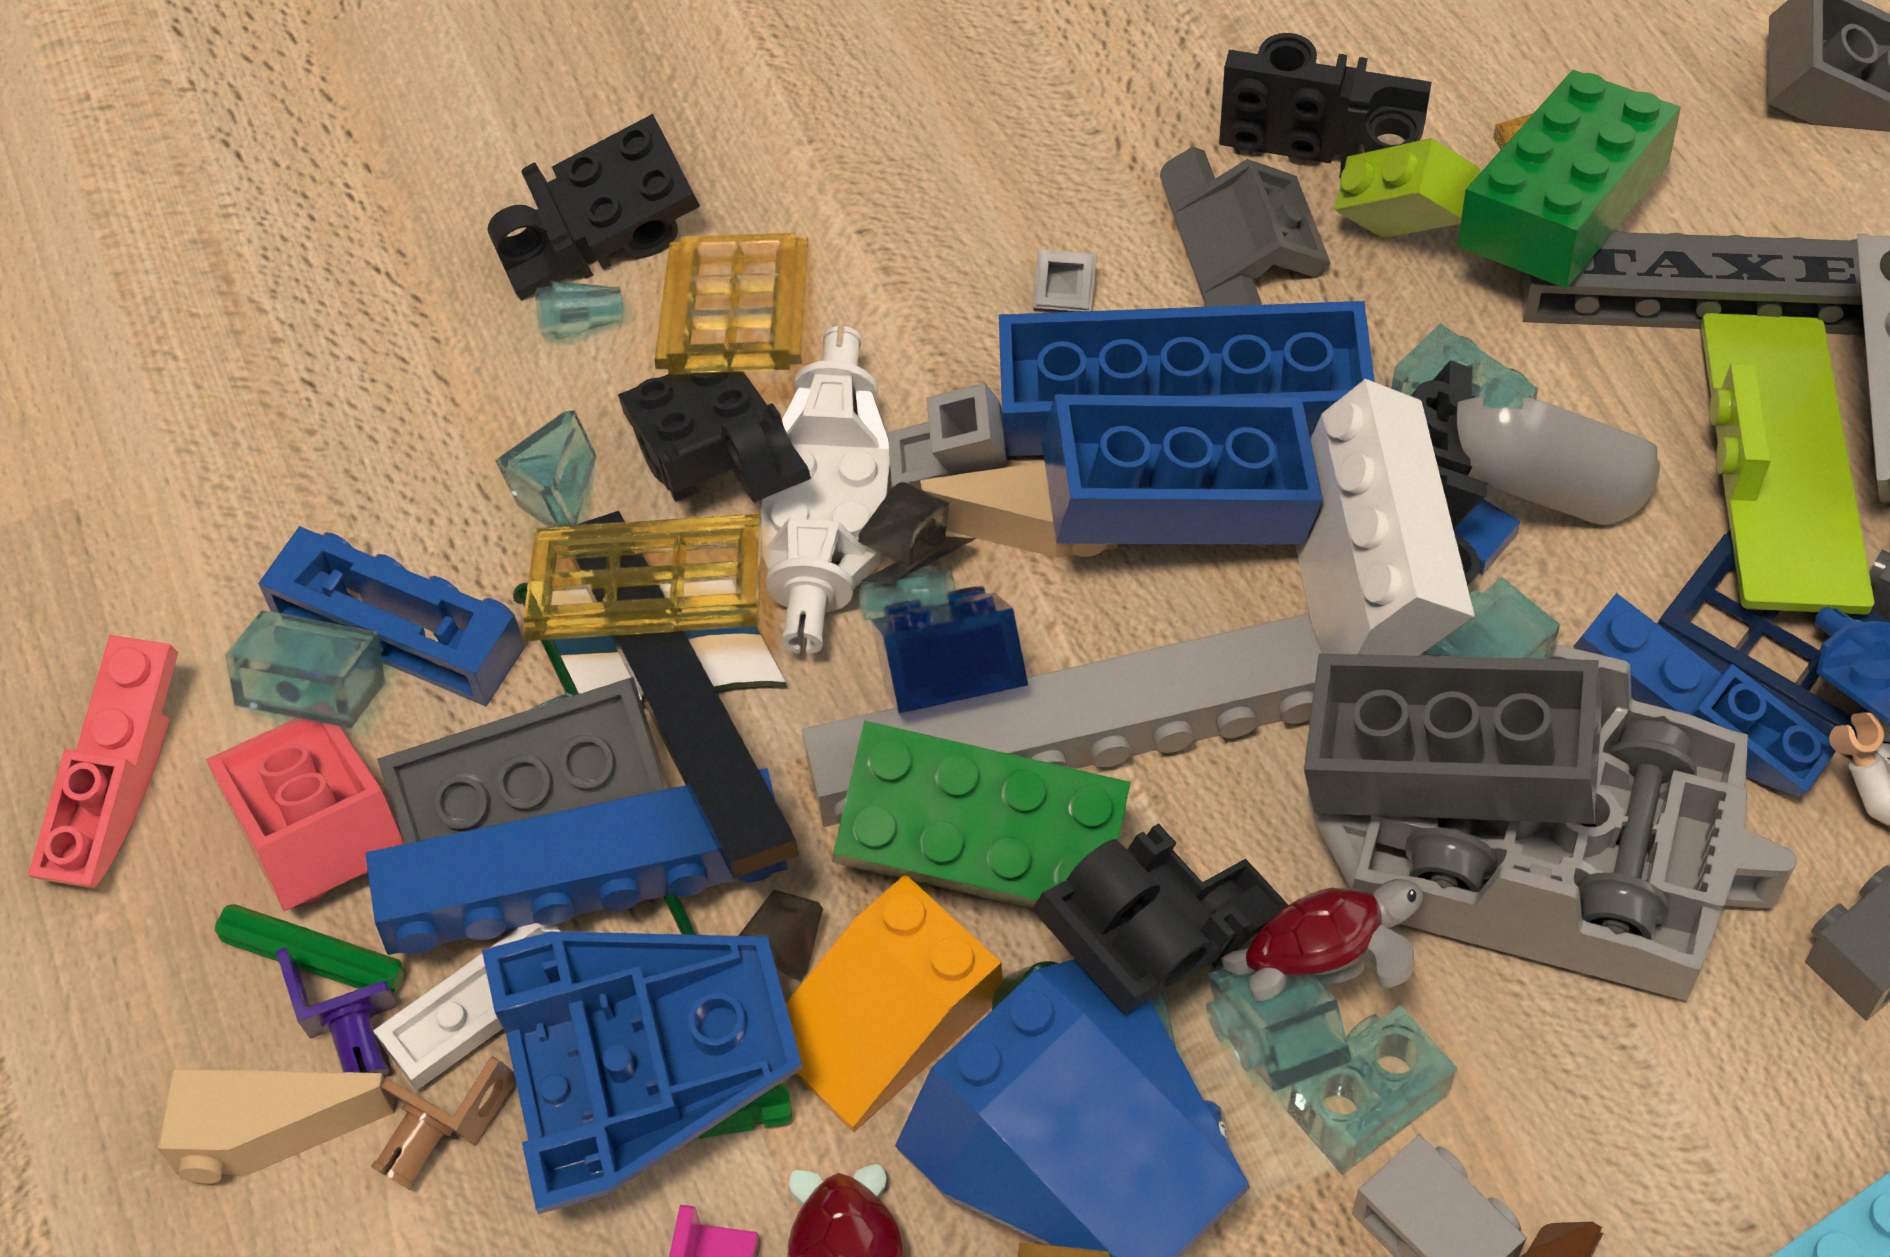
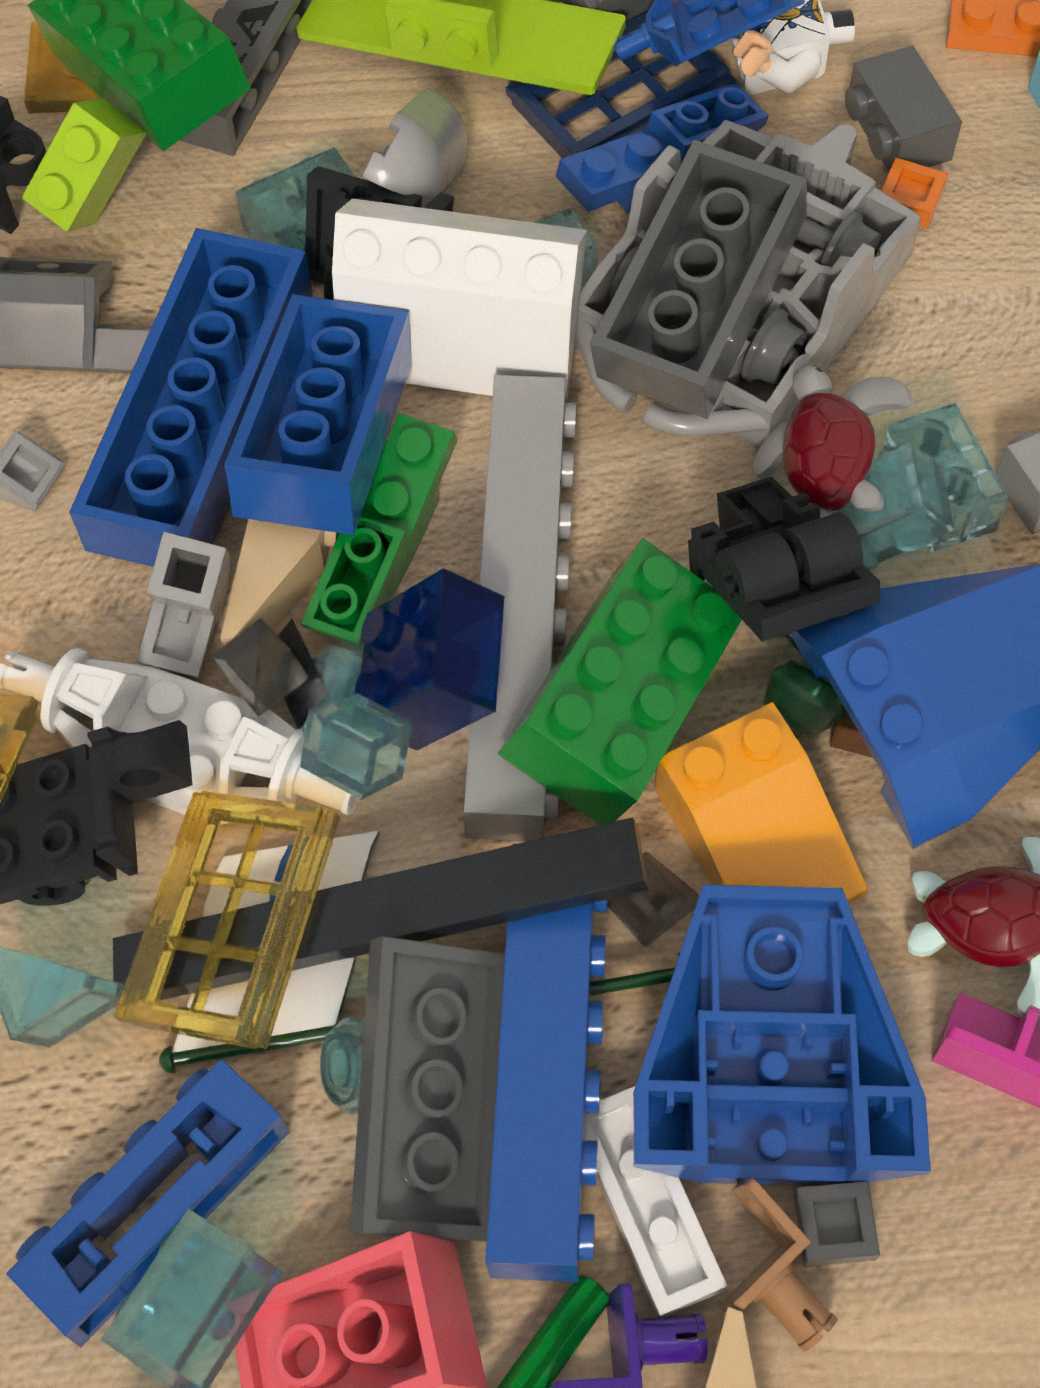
camera: 75 degrees left, 5 degrees up
(492, 1166) = (837, 1223): none -> dark grey plate
(834, 615) = (355, 744): none -> clear light blue brick
(1101, 587) = (396, 514): none -> green slope
(1773, 976) = (916, 188): none -> orange plate

